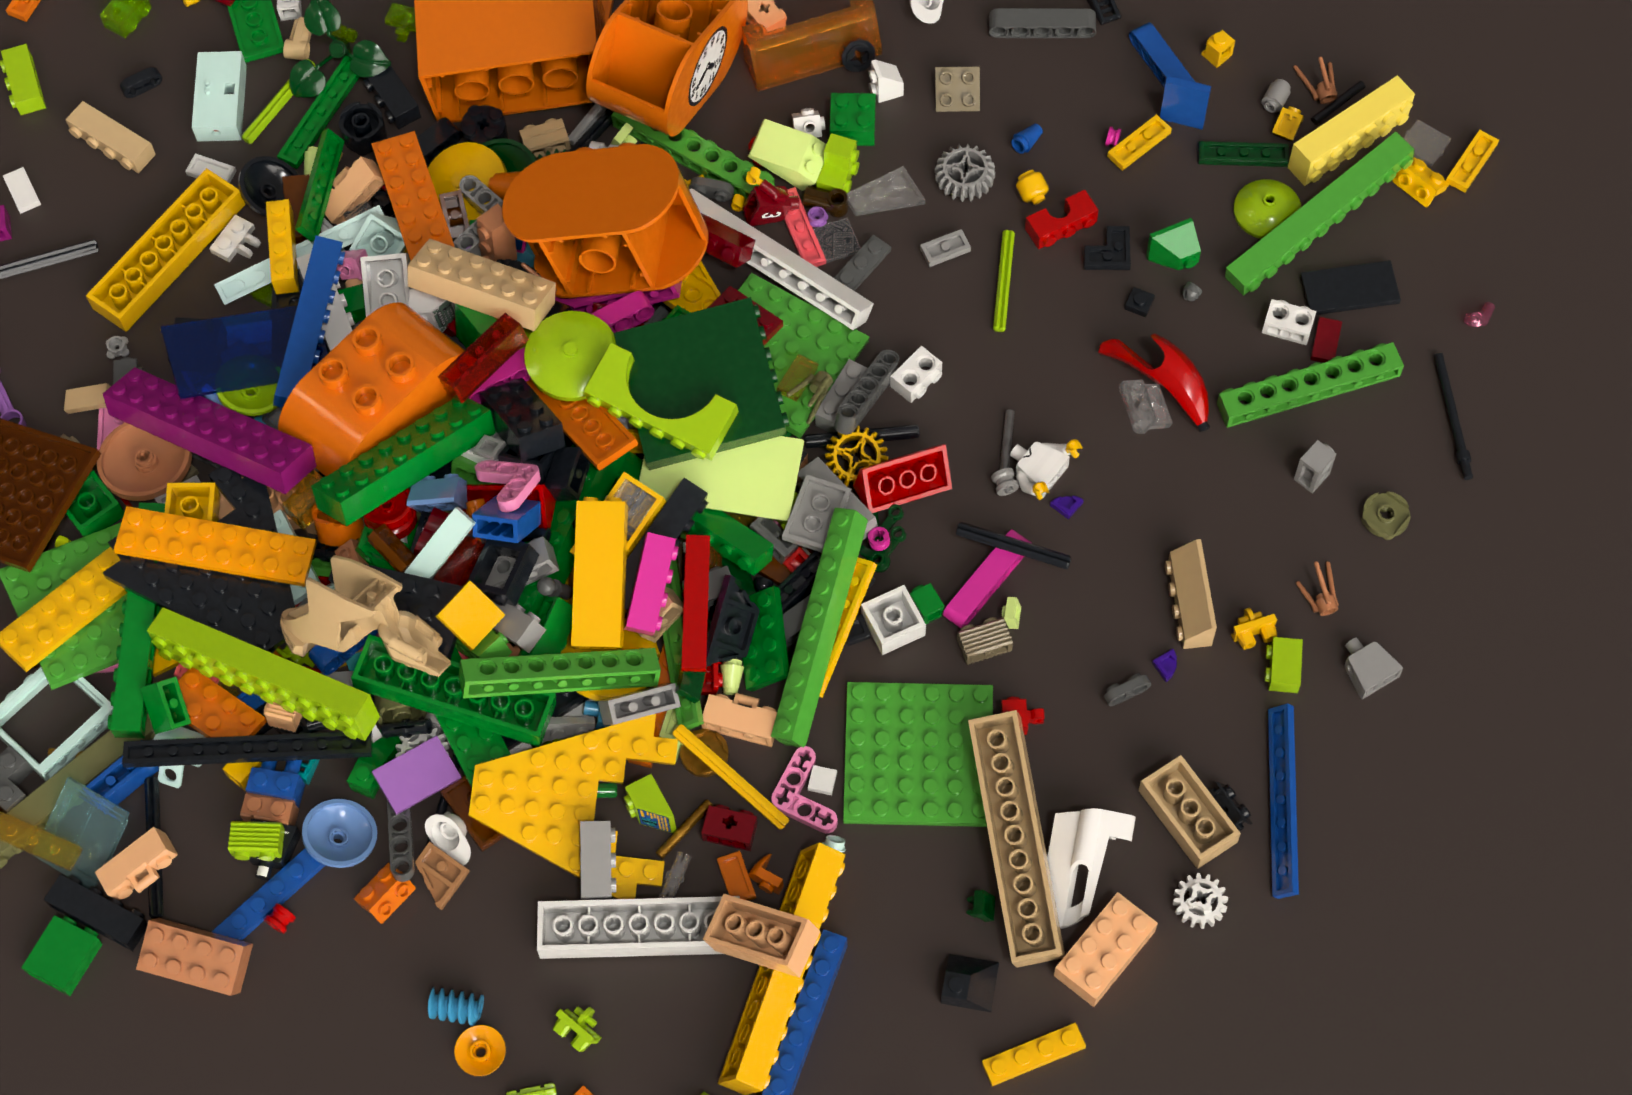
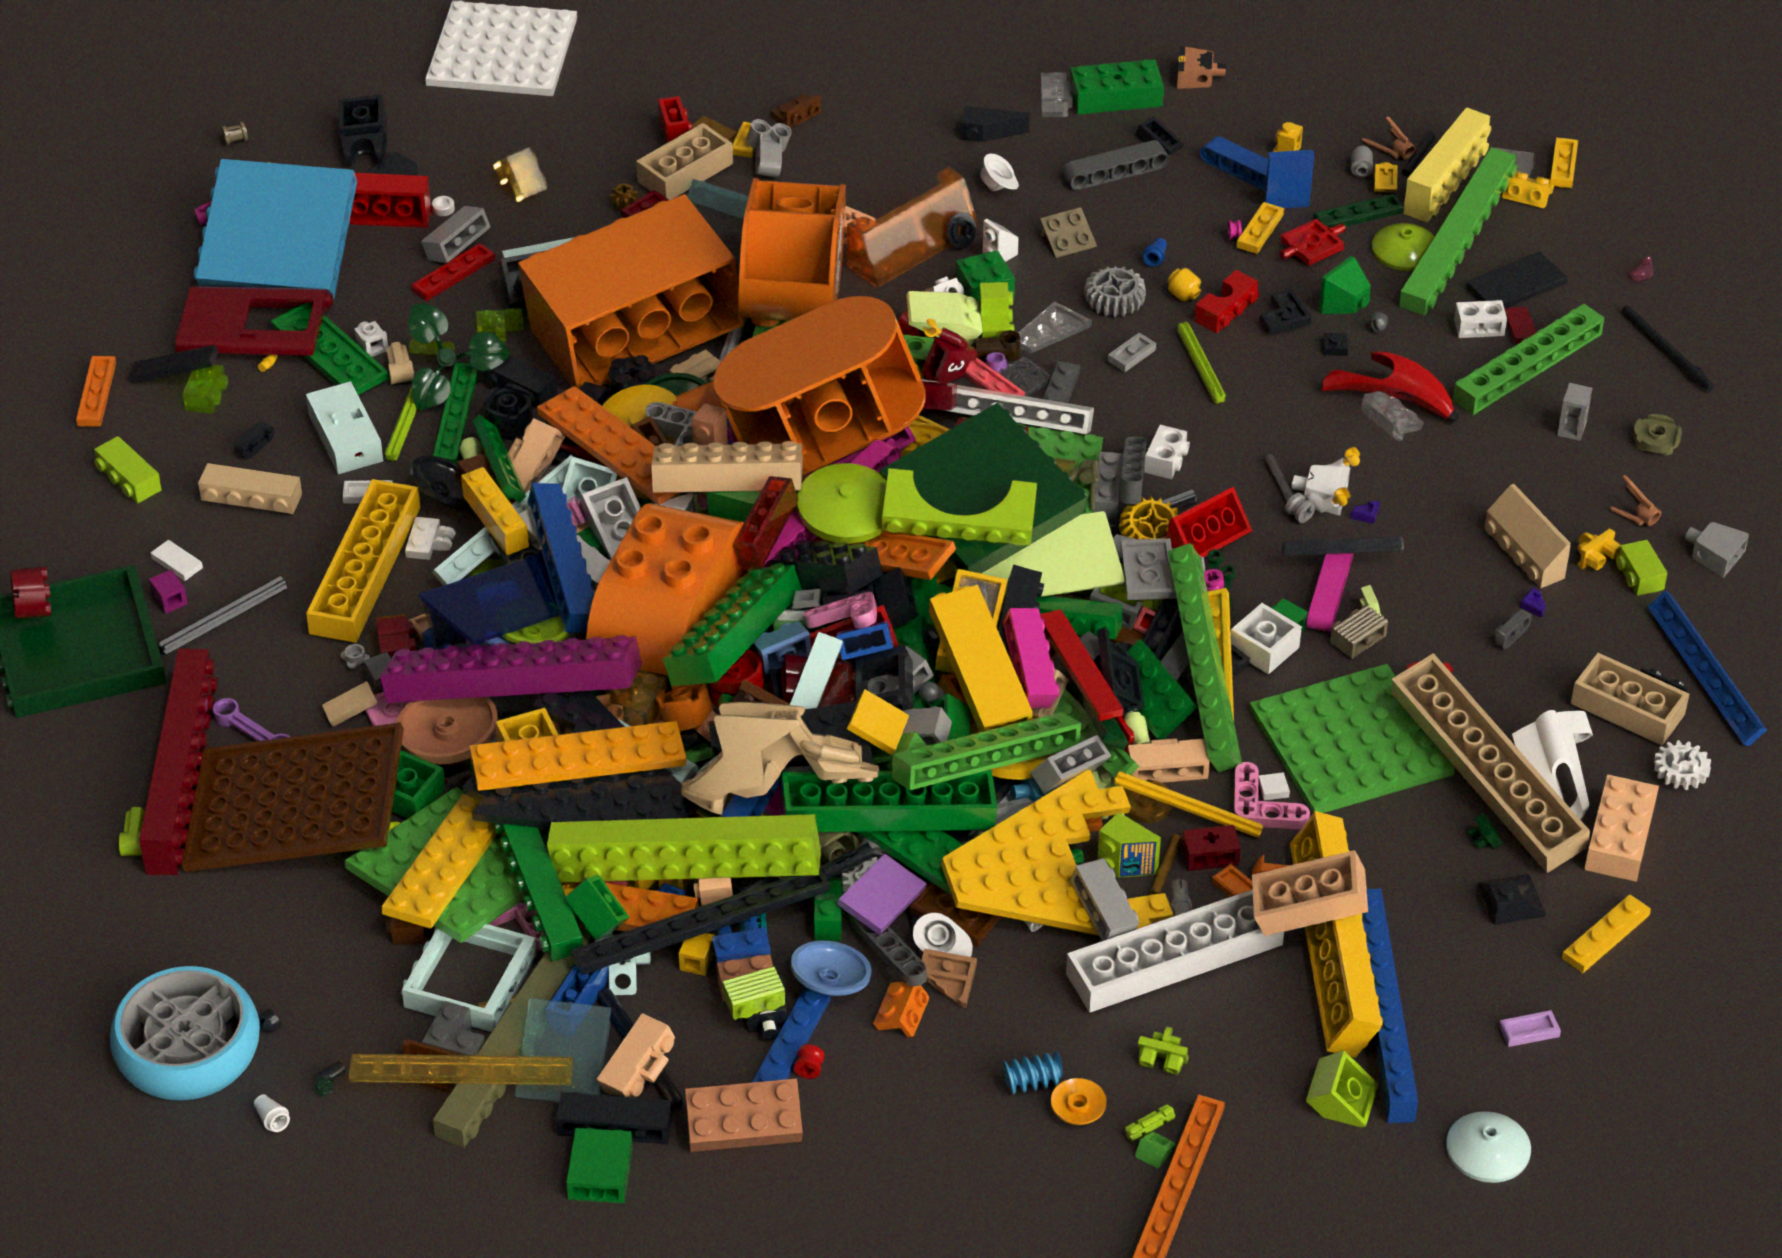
camera: 25 degrees left, 20 degrees down
(150, 346) = (394, 634): none -> dark red brick
(1179, 176) = (1312, 242): none -> red plate

